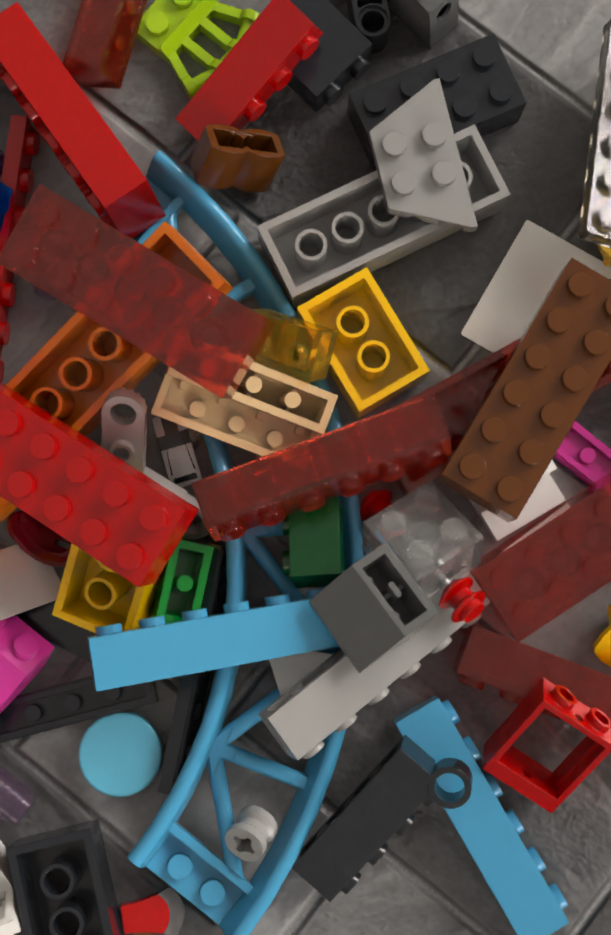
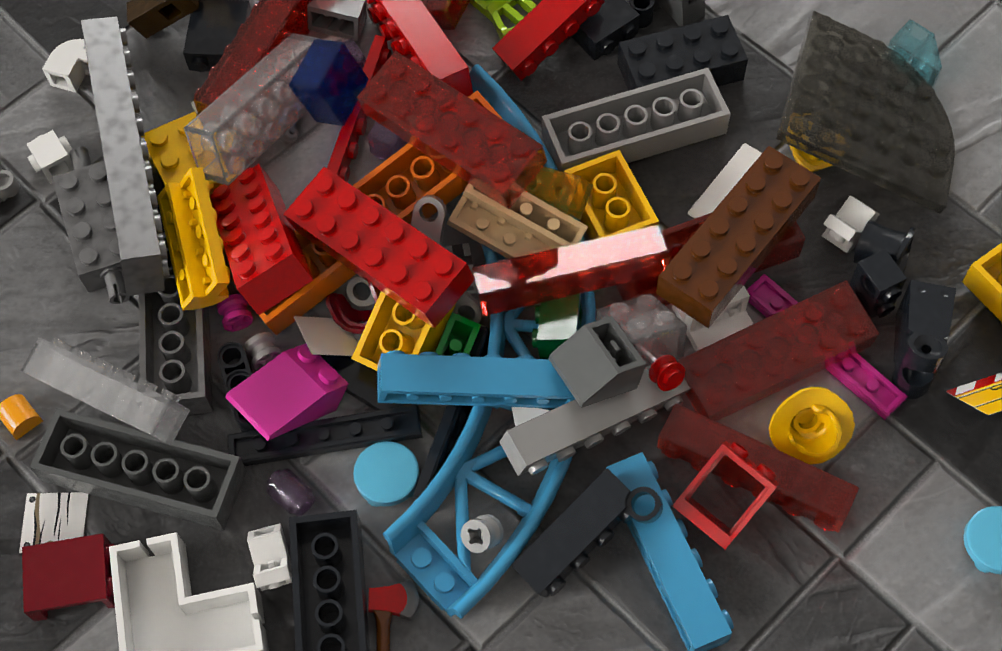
camera: 10 degrees right, 20 degrees down
(236, 158) = (532, 76): reddish brown brick -> none
(422, 162) = (666, 86): light grey wing -> none

